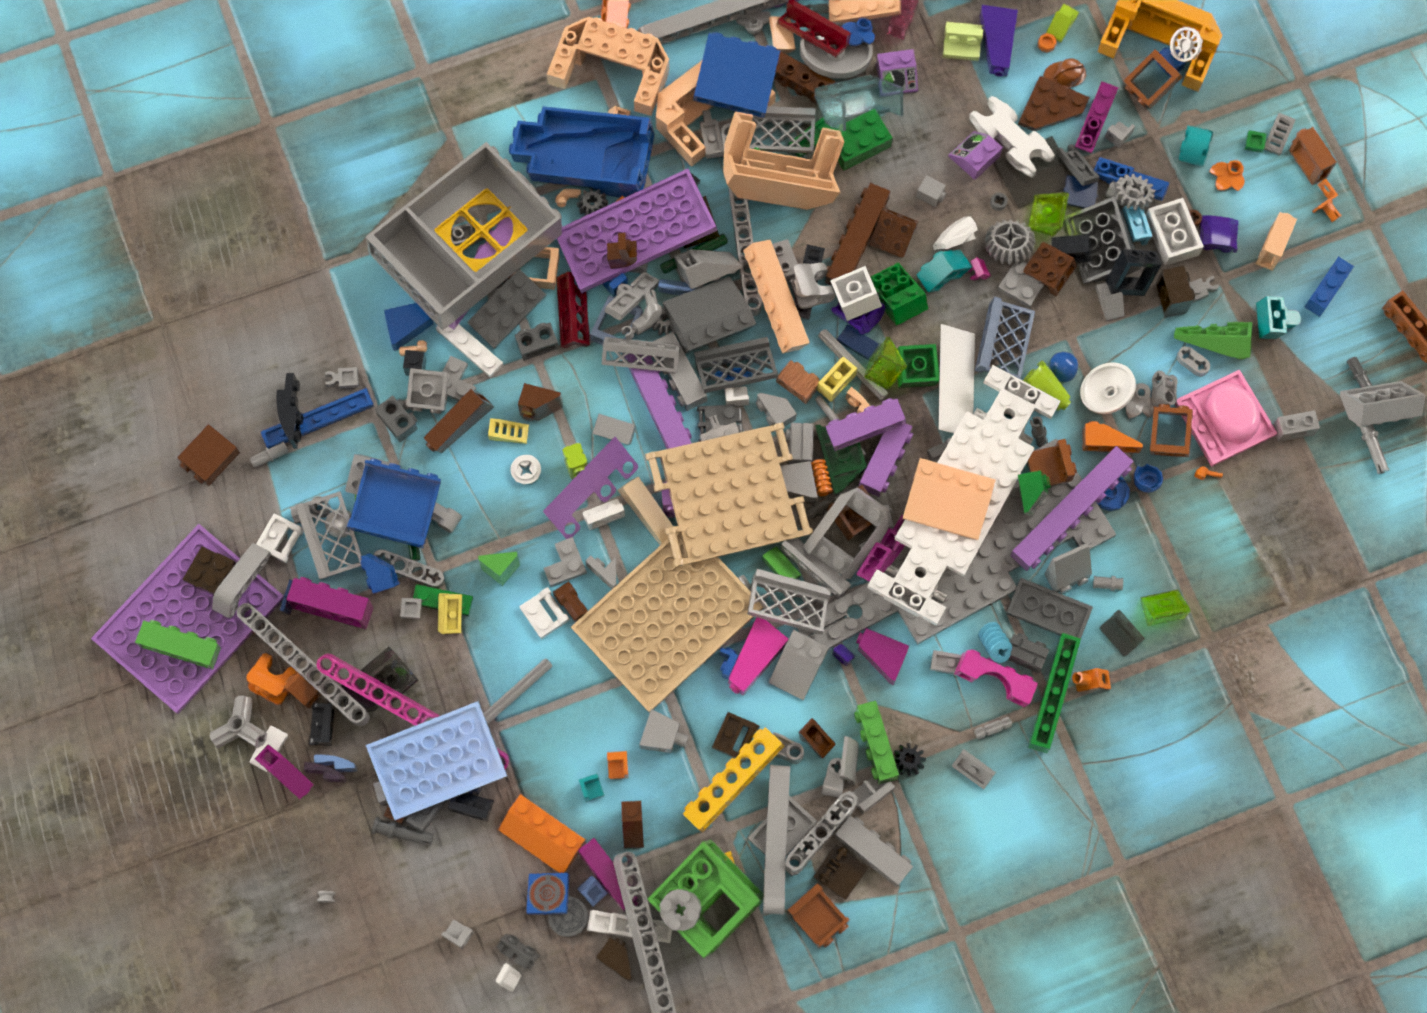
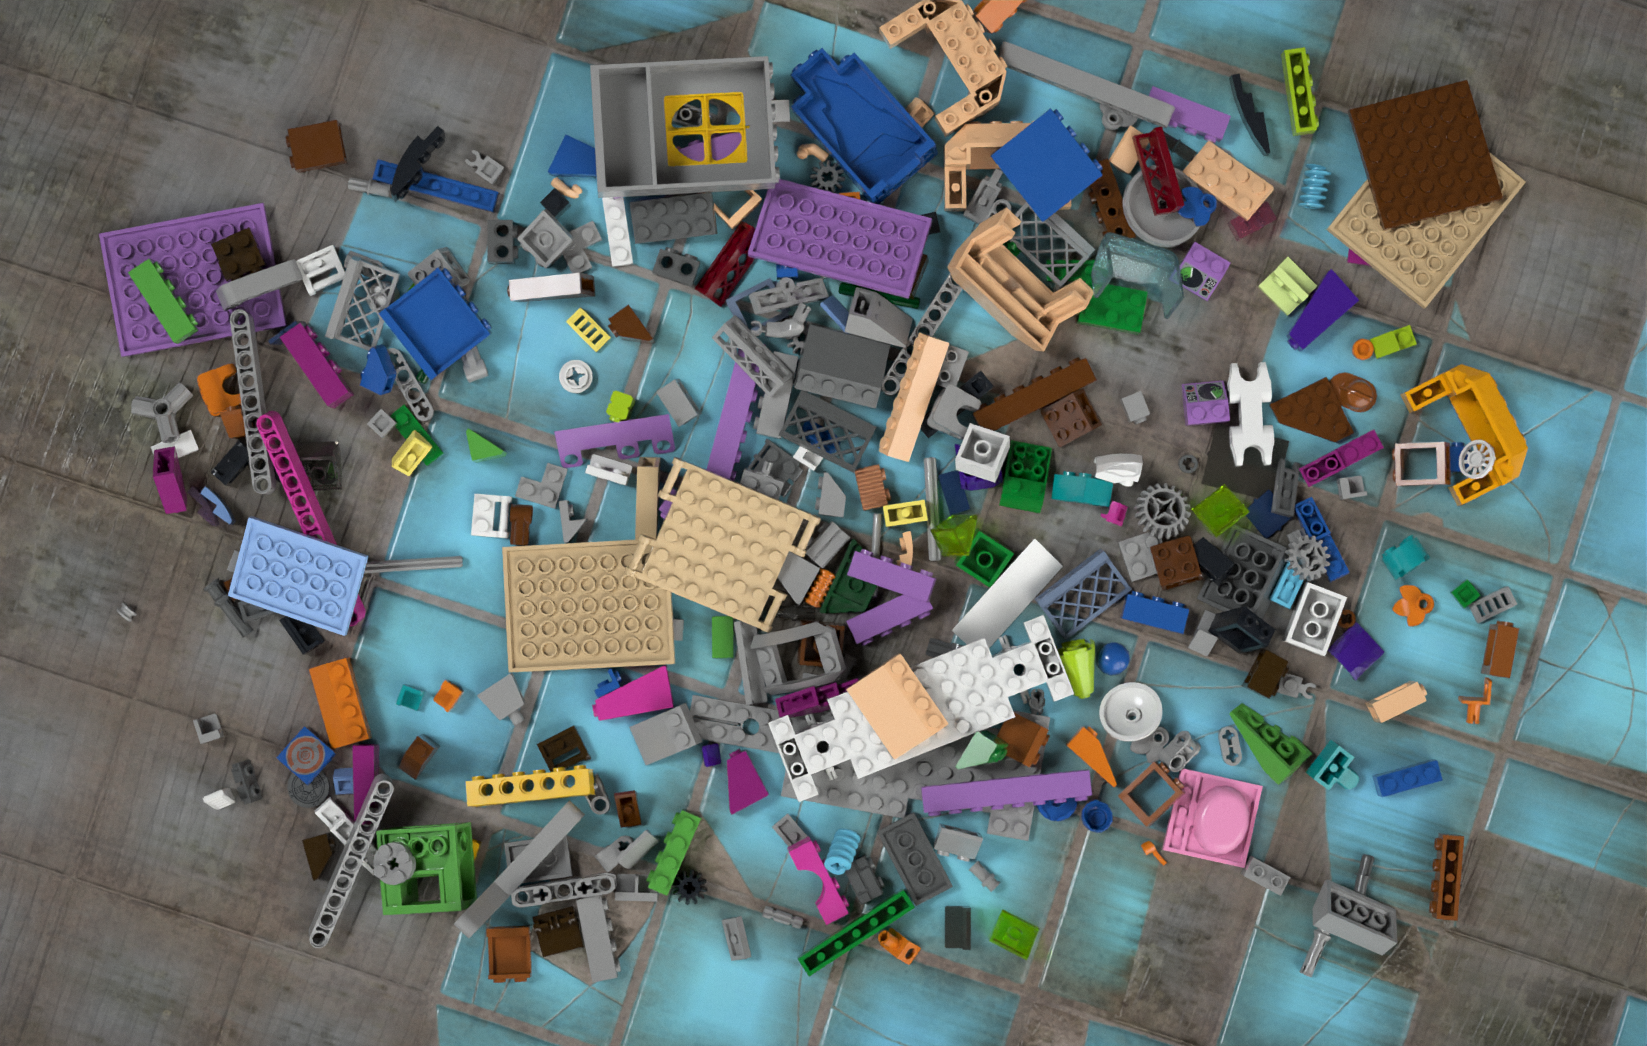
camera: 40 degrees right, 15 degrees up
(622, 252) = (806, 253): reddish brown brick -> none
(790, 588) = (713, 667): light grey fence -> none
(1064, 313) = (1155, 612): none -> blue brick

